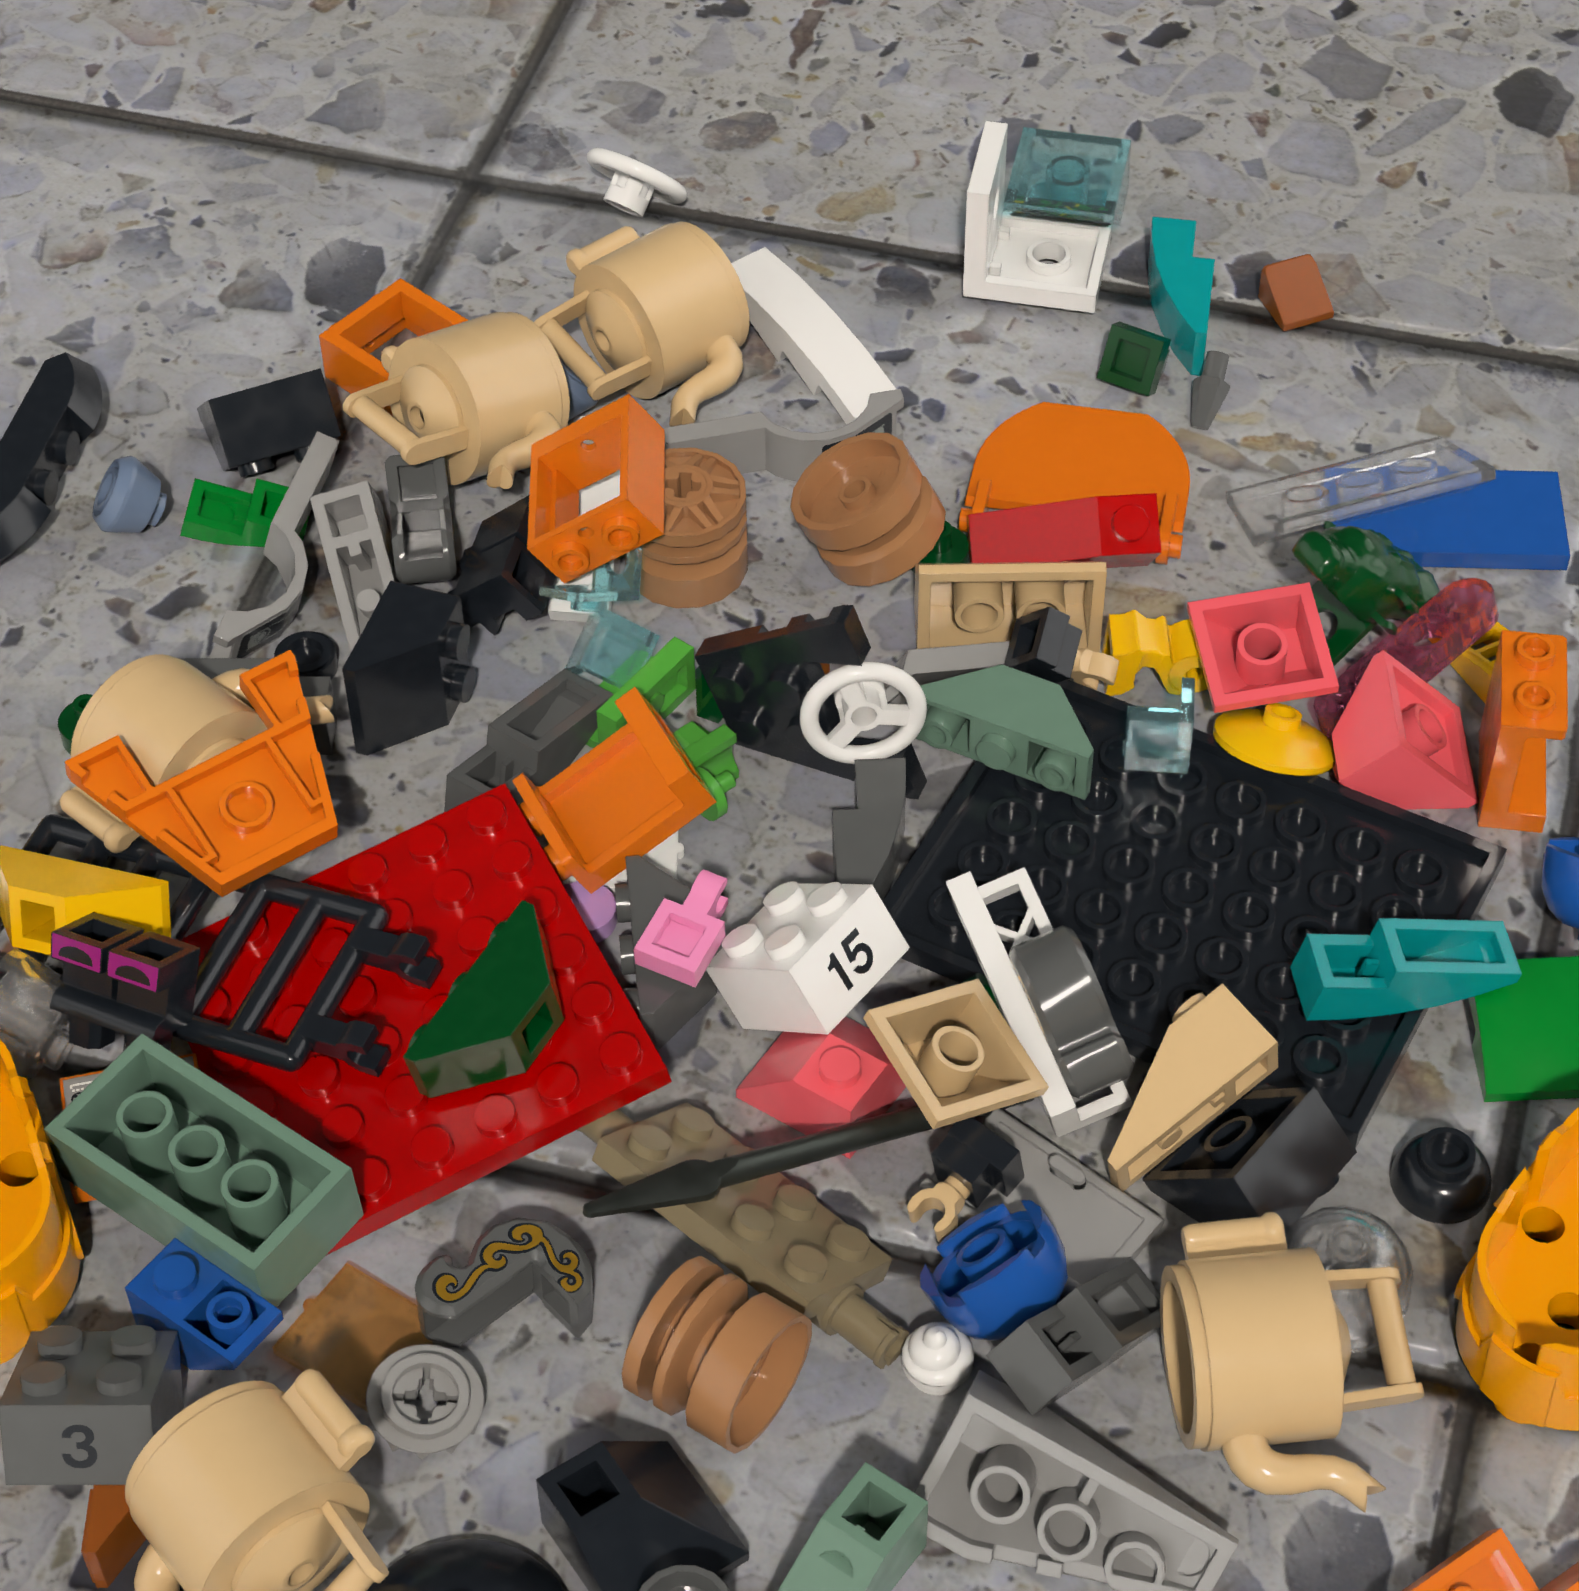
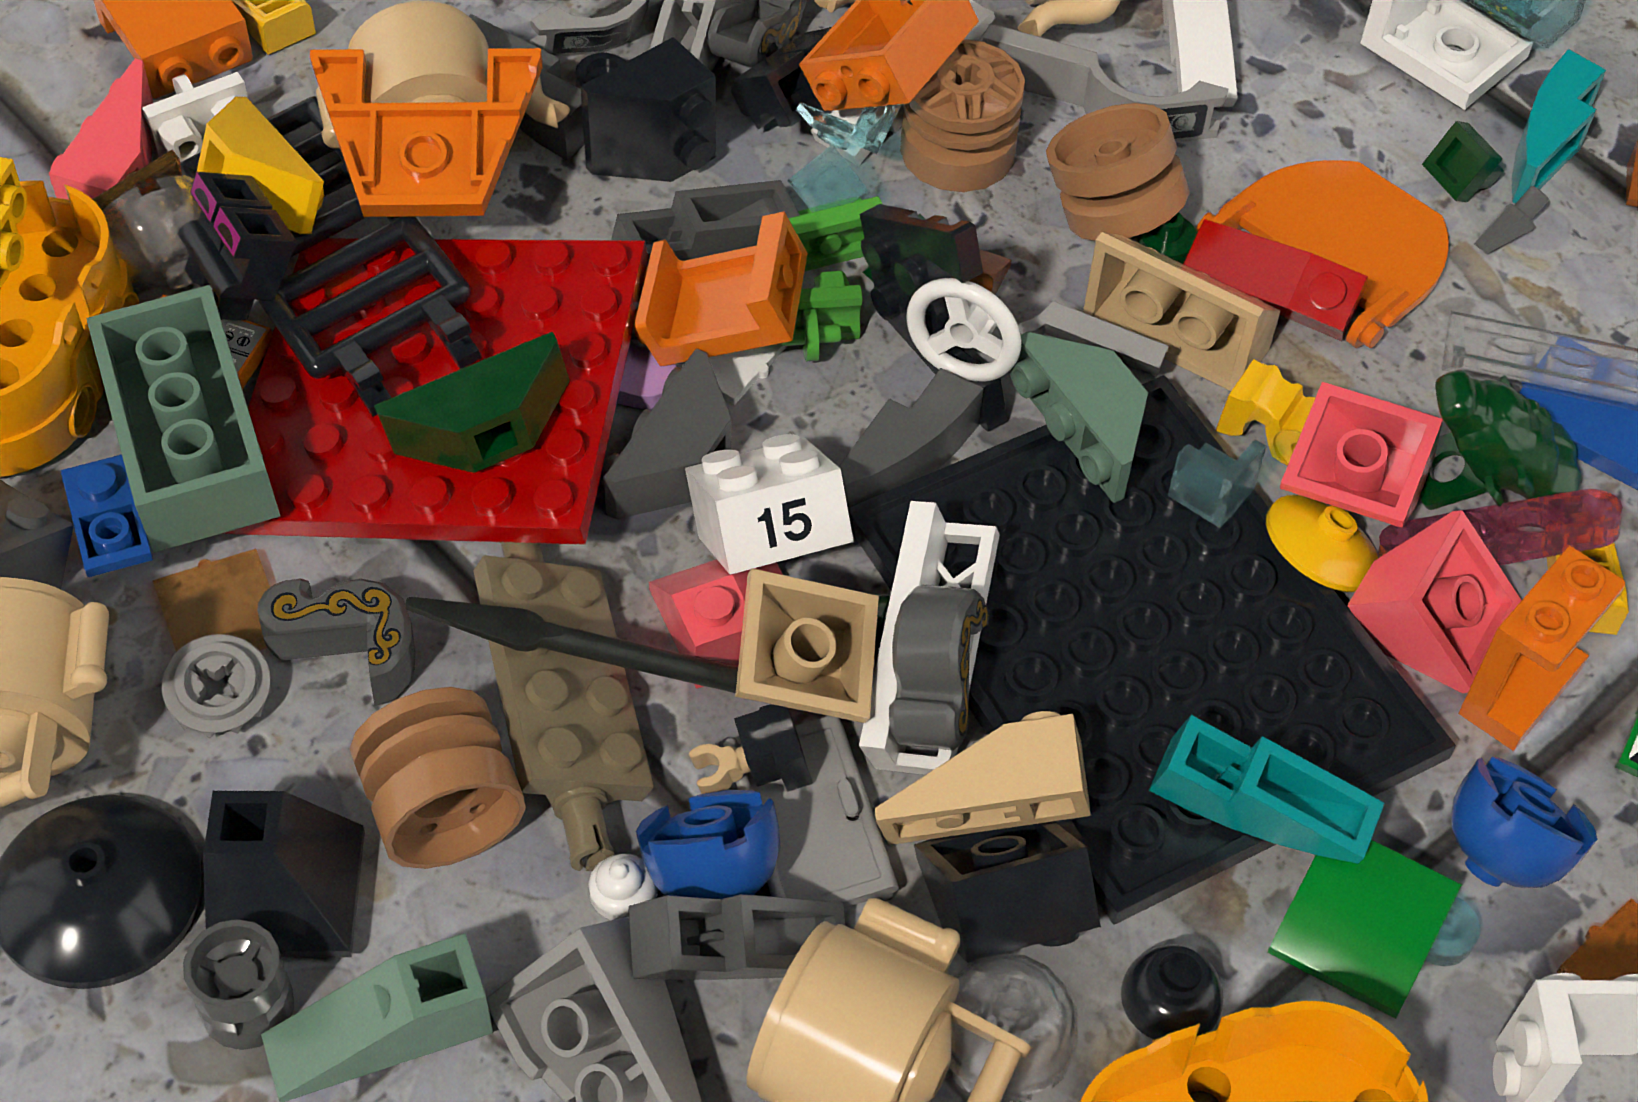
camera: 30 degrees right, 5 degrees up
(685, 936) = (680, 434): bright pink plate -> none
(1048, 649) = (1170, 361): black piece -> none

